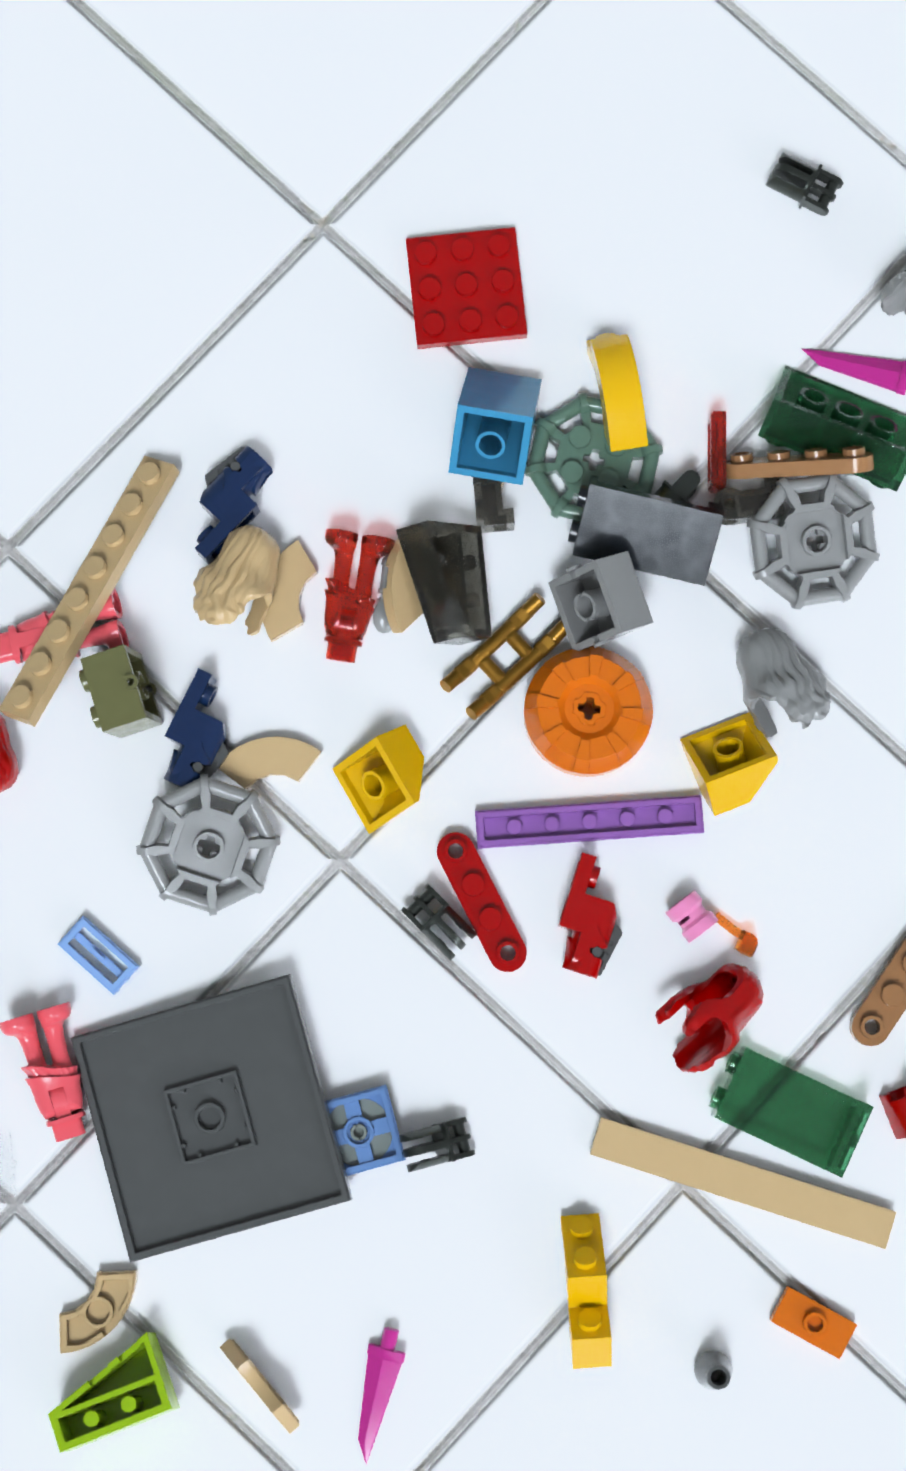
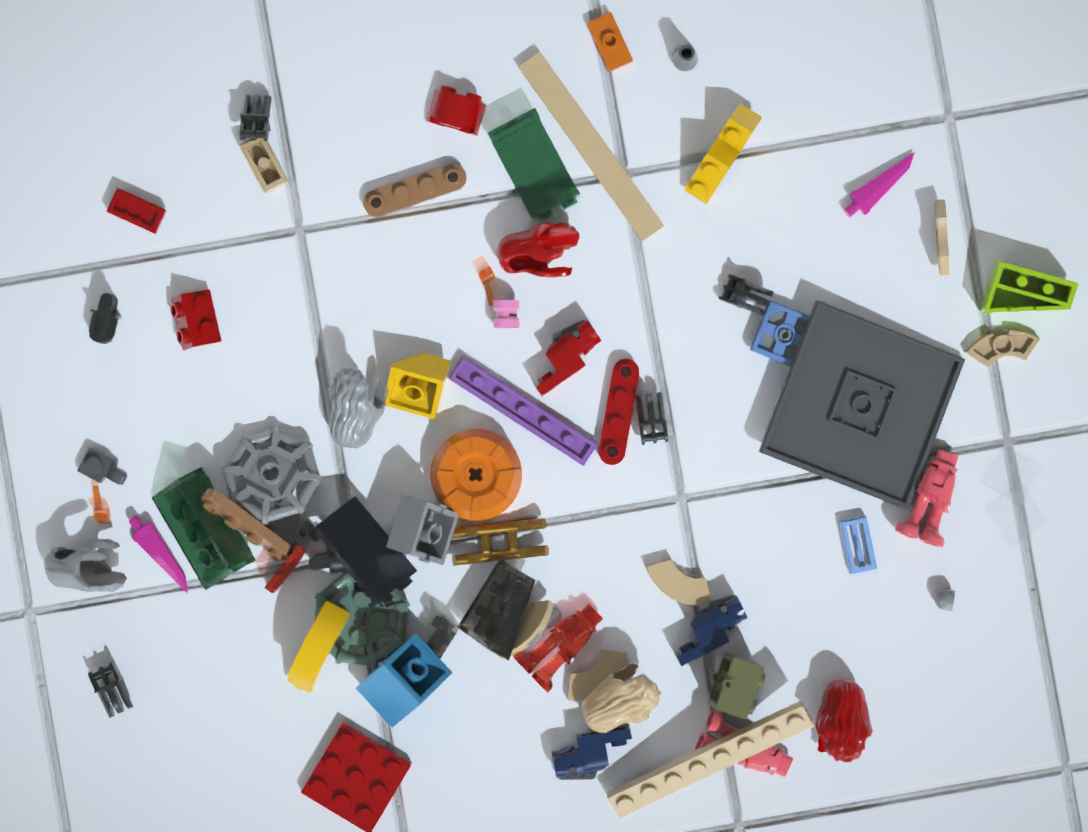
camera: 135 degrees left, 5 degrees up
(198, 825) = (748, 575): light grey plate -> none
(383, 777) = (621, 524): yellow slope -> none

